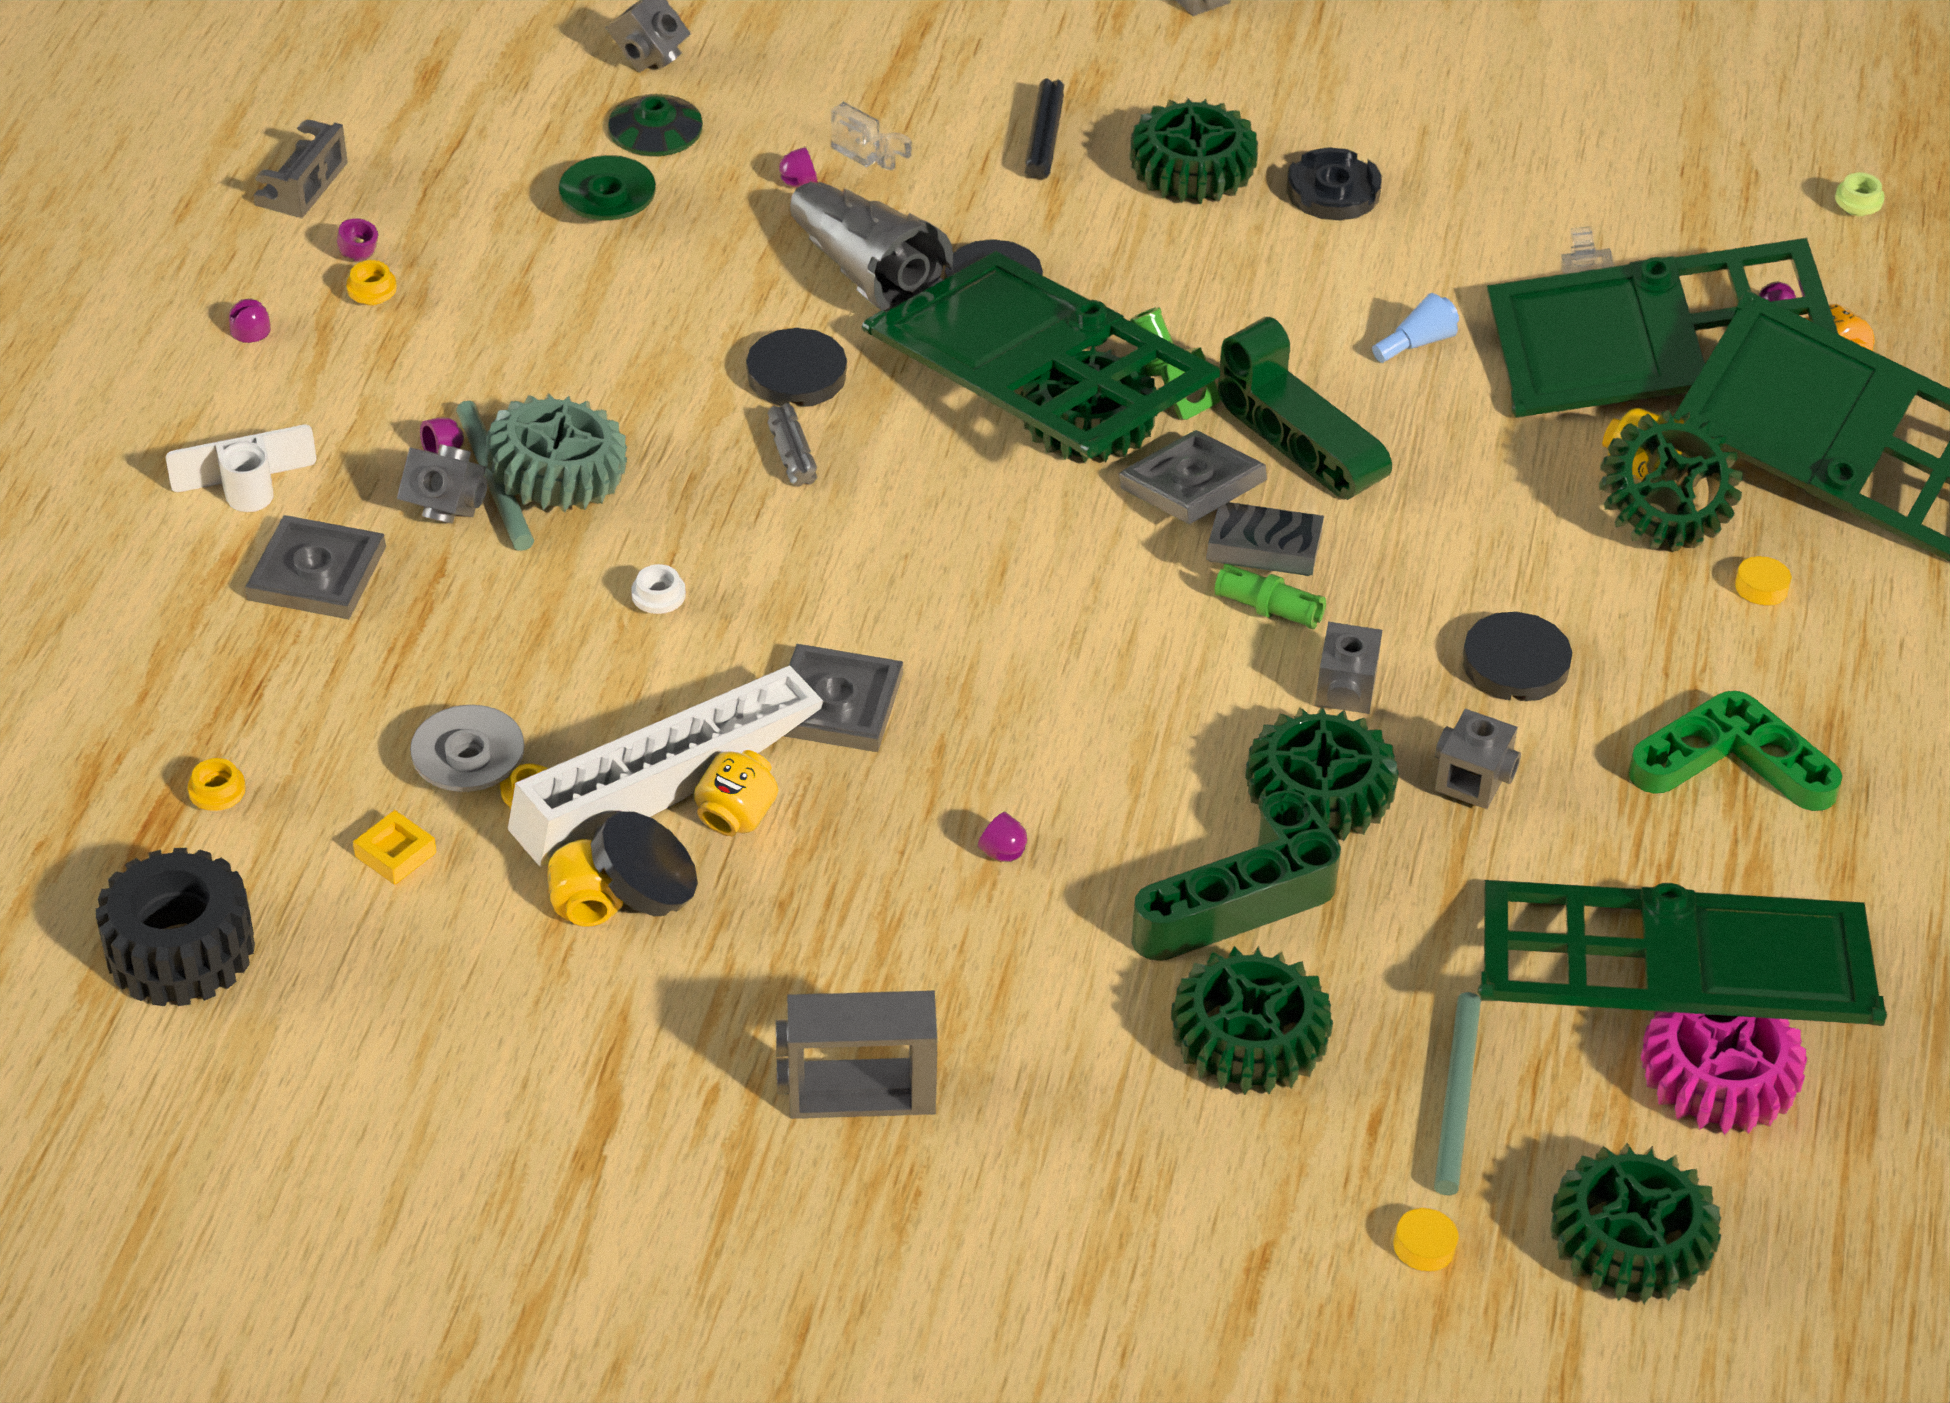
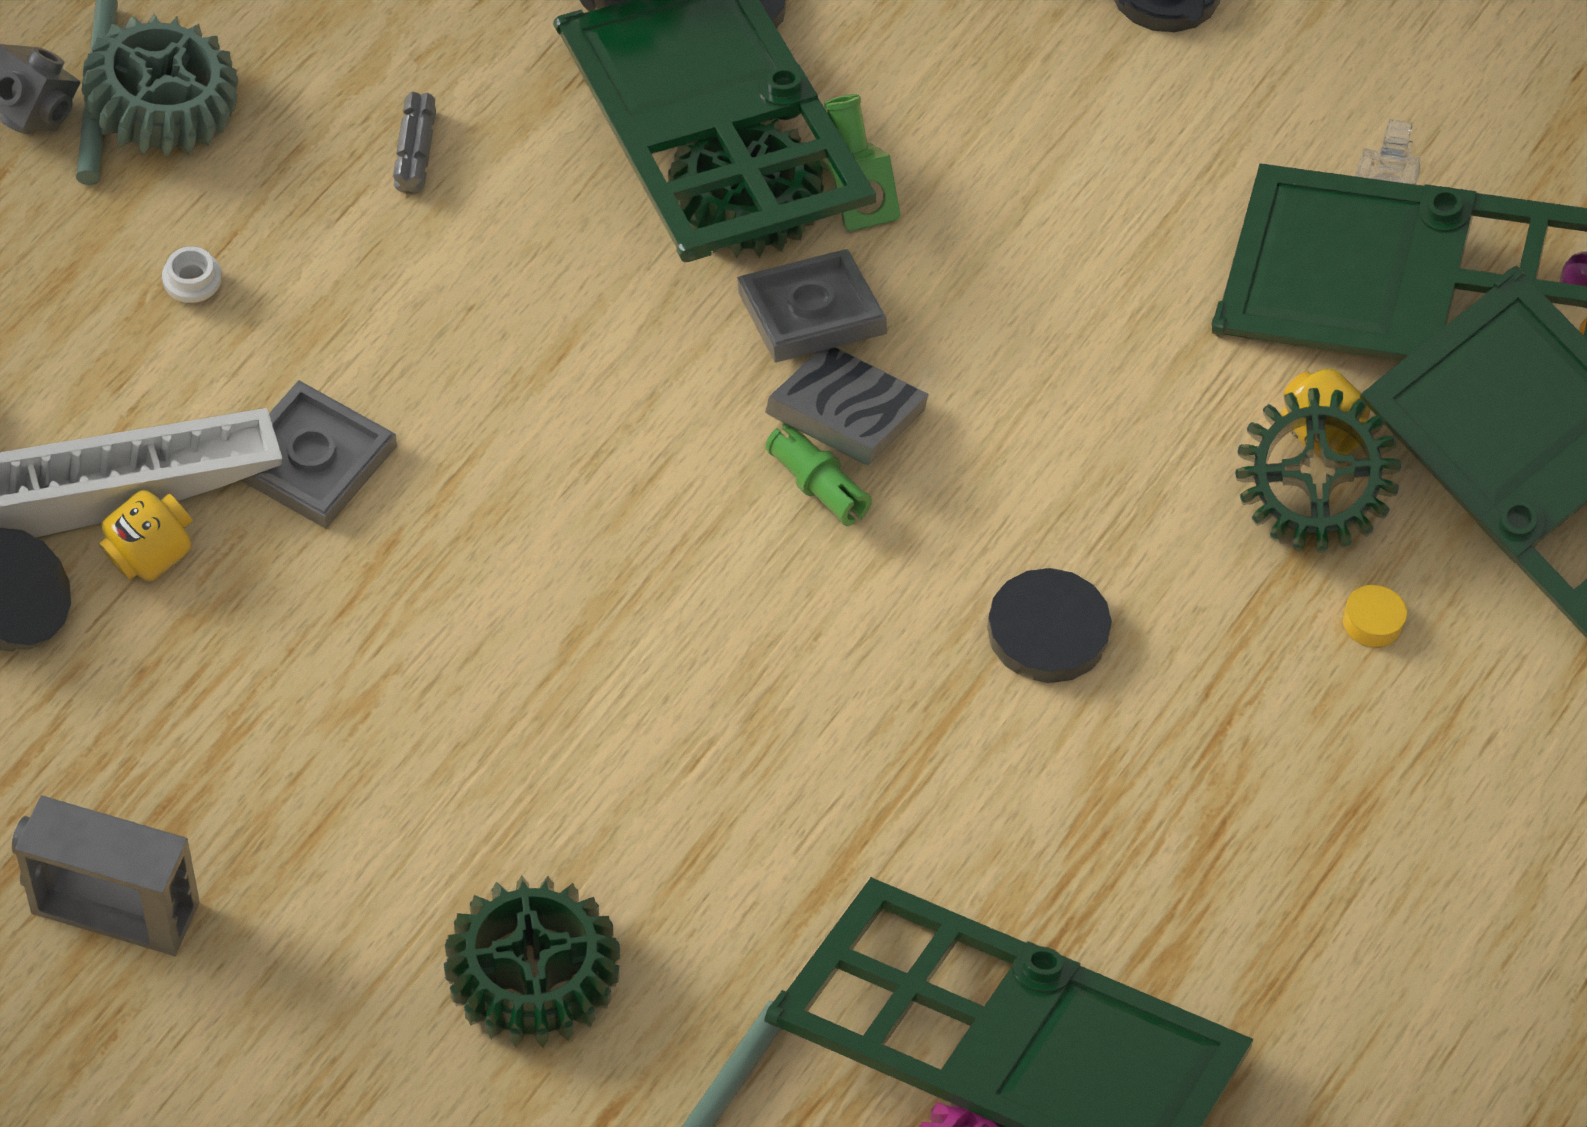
camera: 20 degrees right, 10 degrees up
(440, 431) = (63, 31): magenta hinge -> none
(796, 367) = (467, 49): black tile -> none
(1003, 838) = (392, 671): magenta hinge -> none
(1279, 878) = (595, 797): dark green beam -> none
(1293, 416) = (957, 263): dark green beam -> none
(1329, 761) = (778, 725): dark green gear -> none
(1348, 667) = (852, 586): flat silver brick -> none
(1428, 323) = (1165, 192): light blue cone -> none
(1478, 747) = (925, 736): flat silver brick -> none
(1724, 721) = (1222, 792): green beam -> none

